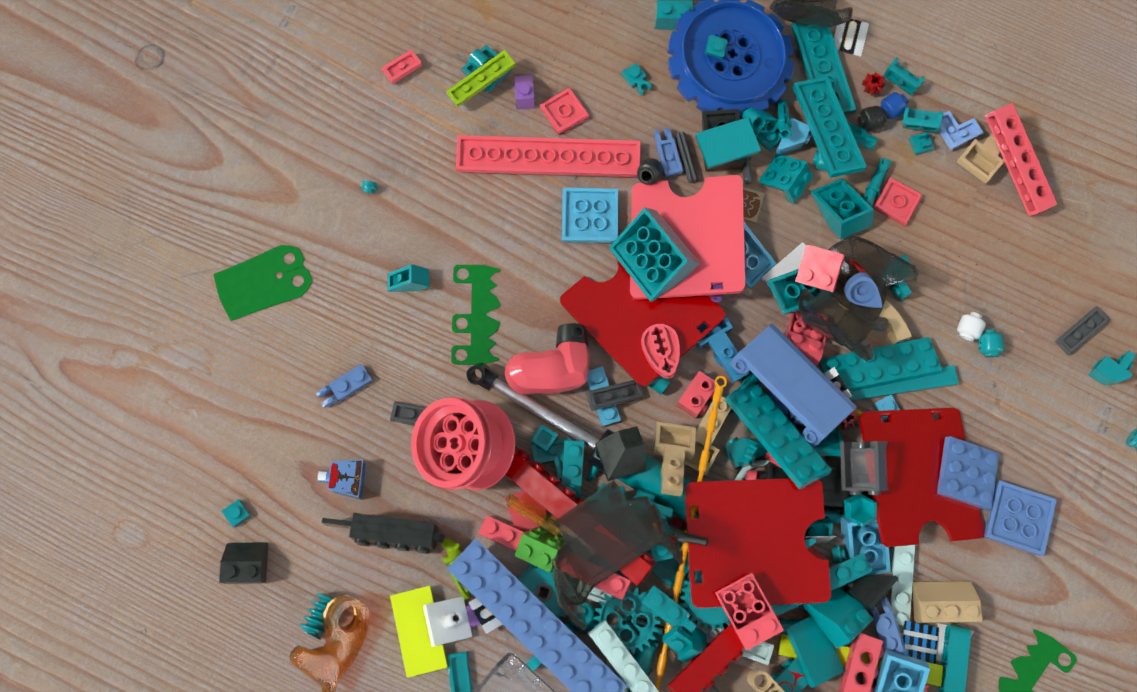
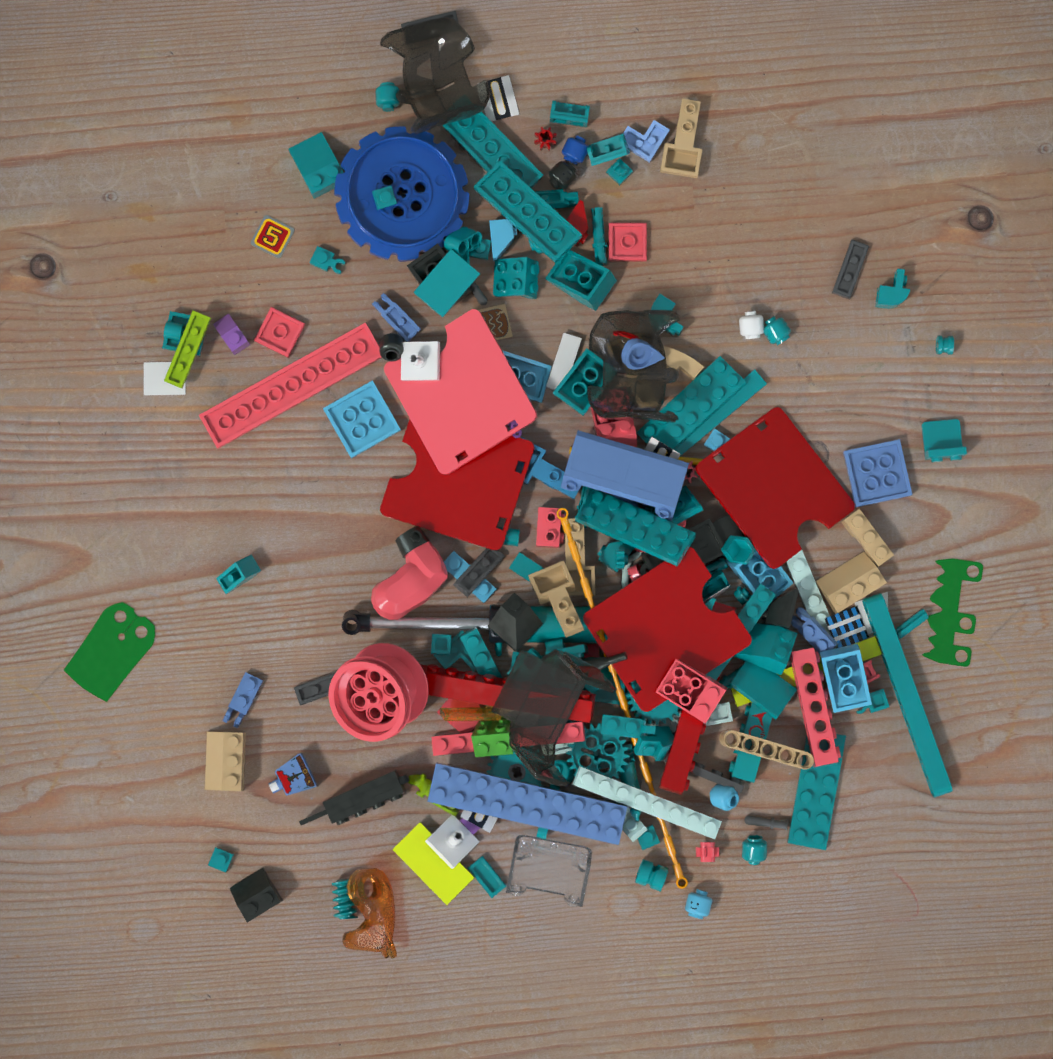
camera: 25 degrees left, 10 degrees up
(296, 429) = (225, 761): none -> tan slope
(369, 187) = (149, 510): teal plate -> none
(401, 66) = (106, 378): coral plate -> none
(439, 97) = (154, 380): none -> white sticker
(479, 323) = (324, 575): green piece -> none
(603, 37) = (272, 236): none -> sticker
(651, 350) = (501, 499): coral piece -> none
(653, 254) = (439, 426): teal slope -> none
(655, 413) = (524, 566): none -> teal tile
(668, 194) = (420, 361): none -> white tile
(686, 157) = (415, 311): dark grey axle -> none
(784, 122) = (489, 239): teal pin -> none
(820, 268) = (591, 358): coral plate -> none
(864, 467) = (721, 513): dark grey window -> none
(869, 156) = (579, 221): none -> red slope
(968, 473) = (814, 460): medium blue plate -> none
(982, 559) = (867, 536): none -> tan arch
(983, 674) = (911, 623): none -> teal axle
(1034, 188) = (705, 141): coral brick -> none
(1096, 524) = (943, 440): none -> teal bracket

